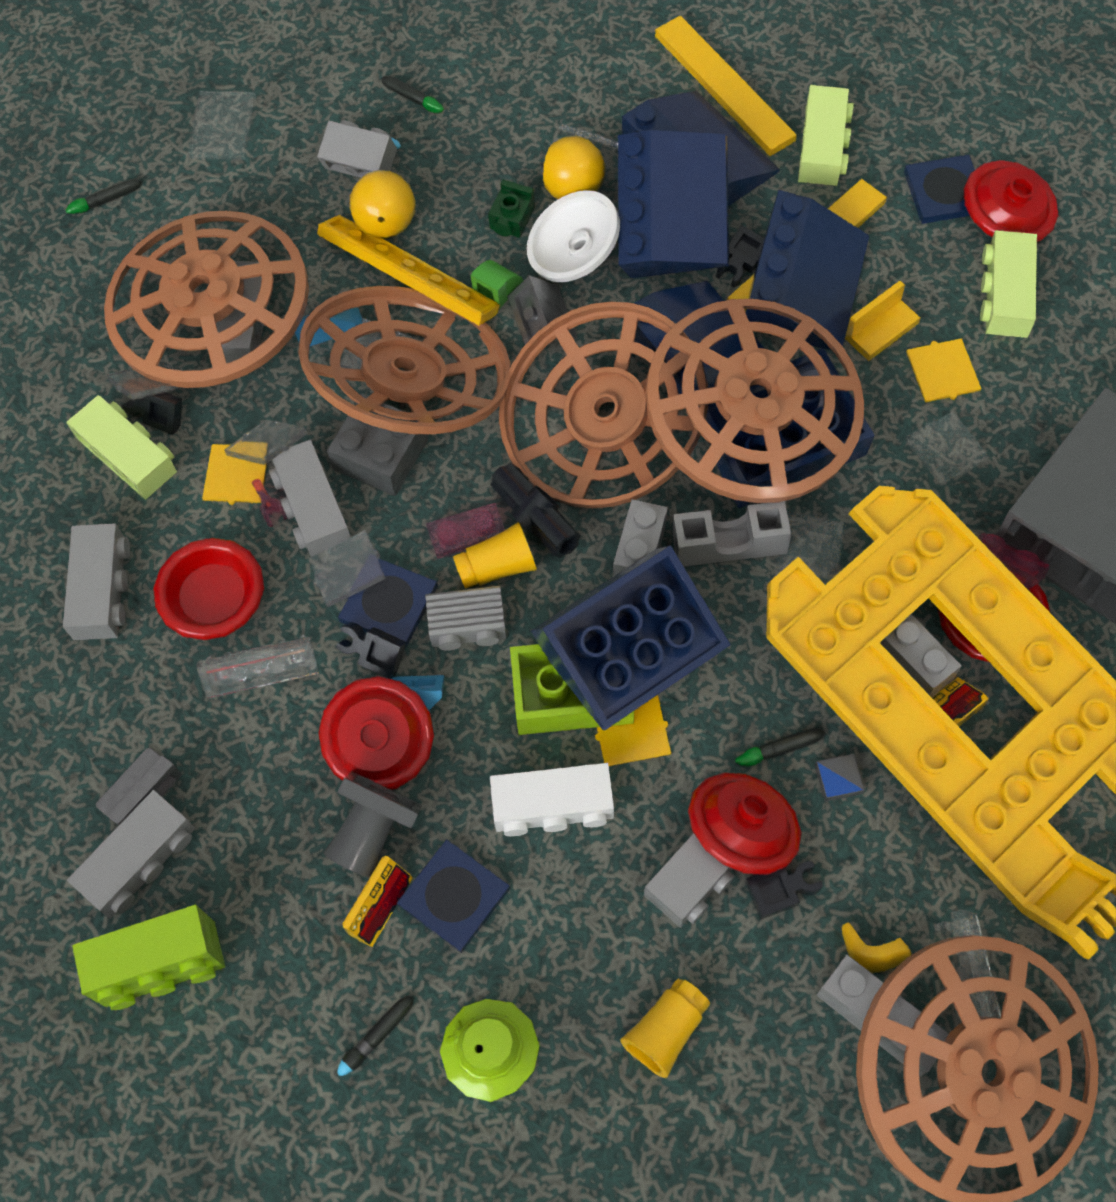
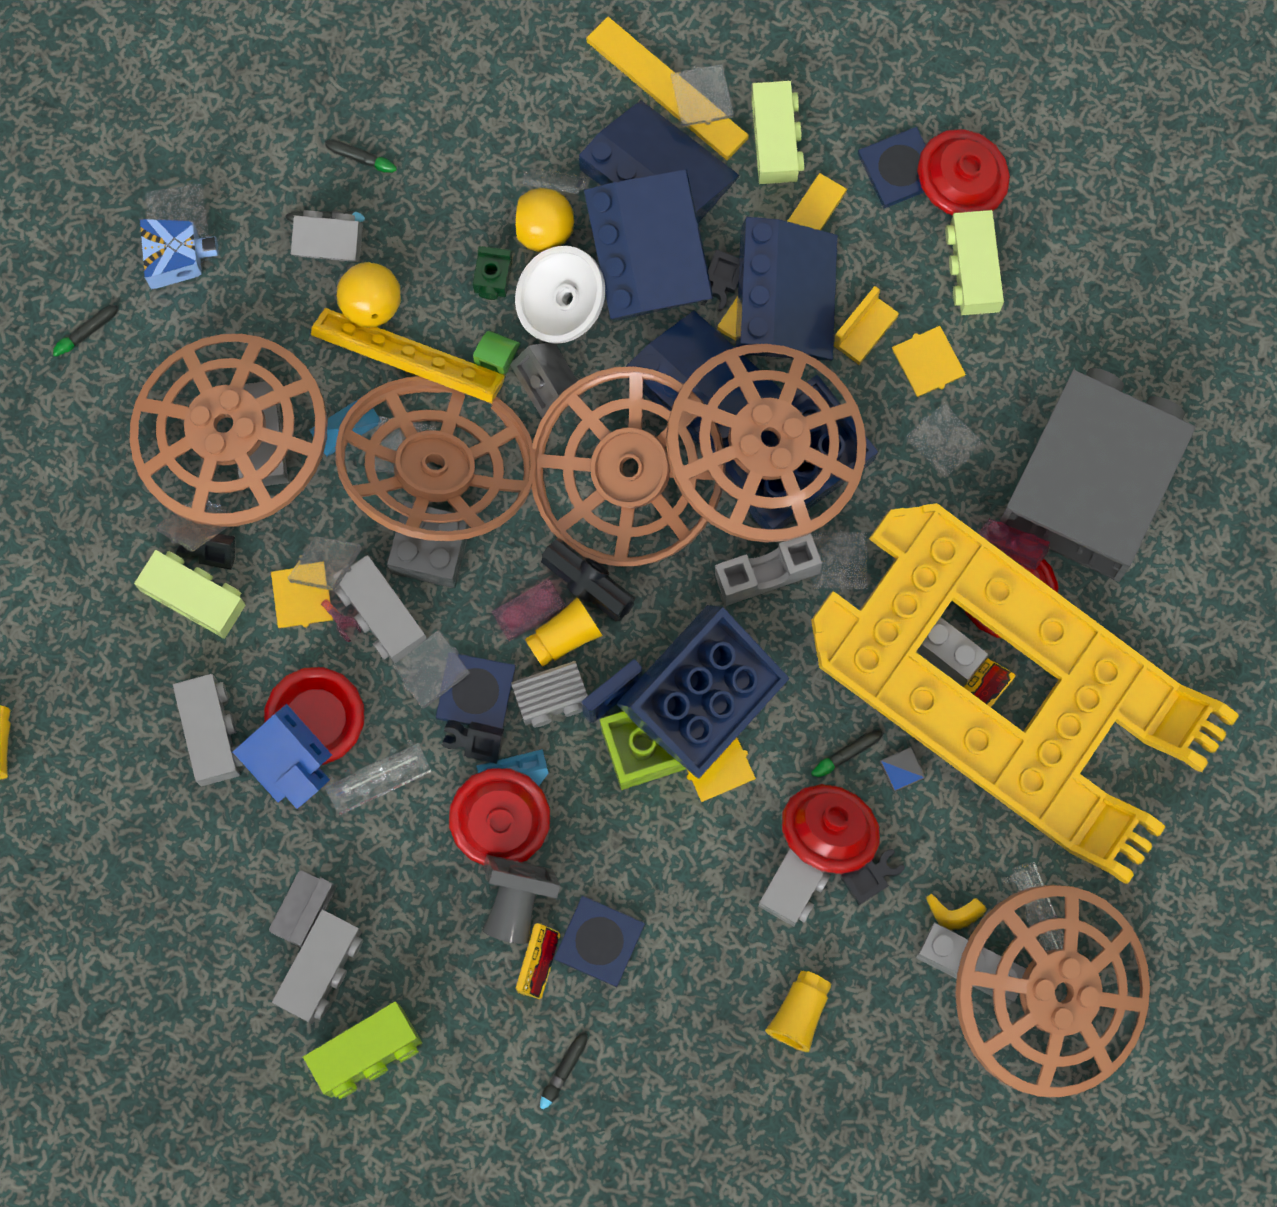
camera: 15 degrees left, 10 degrees up
(163, 620) = (285, 757): none -> piece
(206, 138) = (173, 251): none -> torso
(507, 1052) = (676, 1057): lime hat -> none
(516, 626) = (611, 692): none -> dark blue tile
(552, 799) = (664, 842): white brick -> none
(641, 533) = (688, 590): light grey brick -> none
(757, 93) = (702, 95): none -> clear piece

